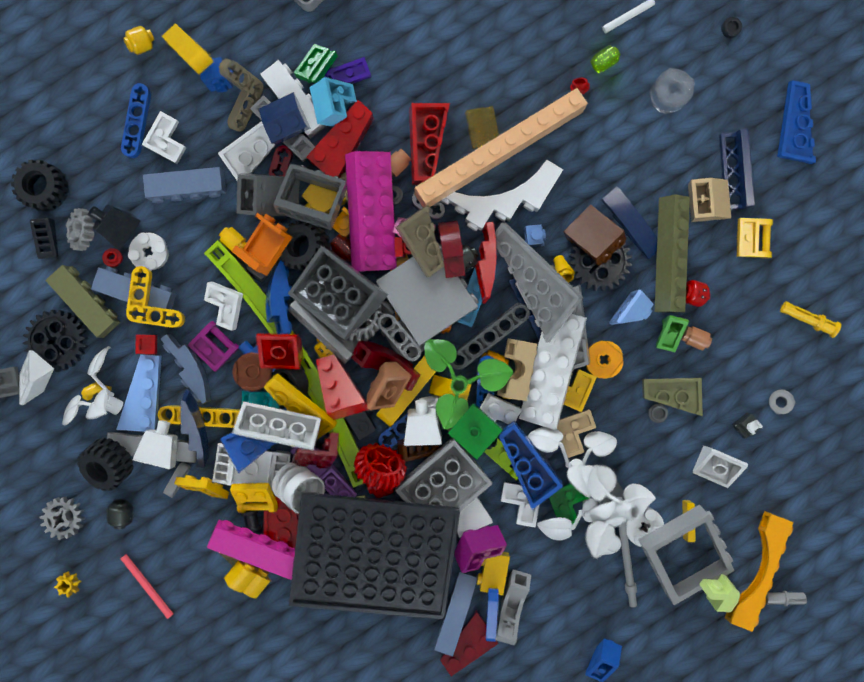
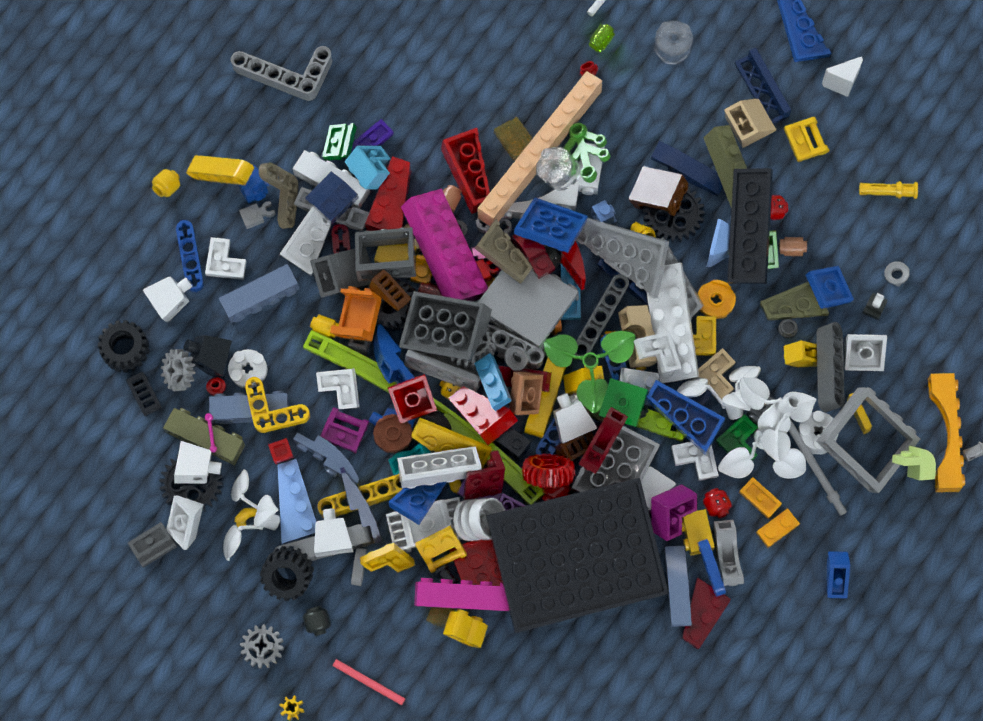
camera: 20 degrees left, 15 degrees down
(57, 329) = (194, 464): none -> white torso
(89, 287) = (208, 417): none -> dark pink hinge
(98, 154) = (168, 296): none -> white torso
(210, 105) = (254, 216): none -> light grey plate
(304, 234) = (393, 286): none -> reddish brown slope
(359, 366) = (493, 382): none -> dark azure plate
(388, 351) = (511, 362): none -> light grey piece
(437, 465) = (603, 440): none -> dark red arch
(478, 231) = (550, 225): none -> blue plate
(508, 176) = (557, 168): none -> clear brick
(523, 552) = (717, 503): none -> red head
(534, 393) = (661, 347): none -> white plate
(540, 166) = (578, 134): none -> bright green plant
(564, 562) = (760, 497): none -> light orange plate
(568, 594) = (777, 528): none -> light orange plate
(662, 446) = (801, 354): none -> yellow slope
(667, 307) = (750, 226): none -> black plate
(681, 471) = (830, 367): none -> dark grey beam
(713, 392) = (829, 287): none -> blue plate
(818, 192) = (842, 76): none -> white slope

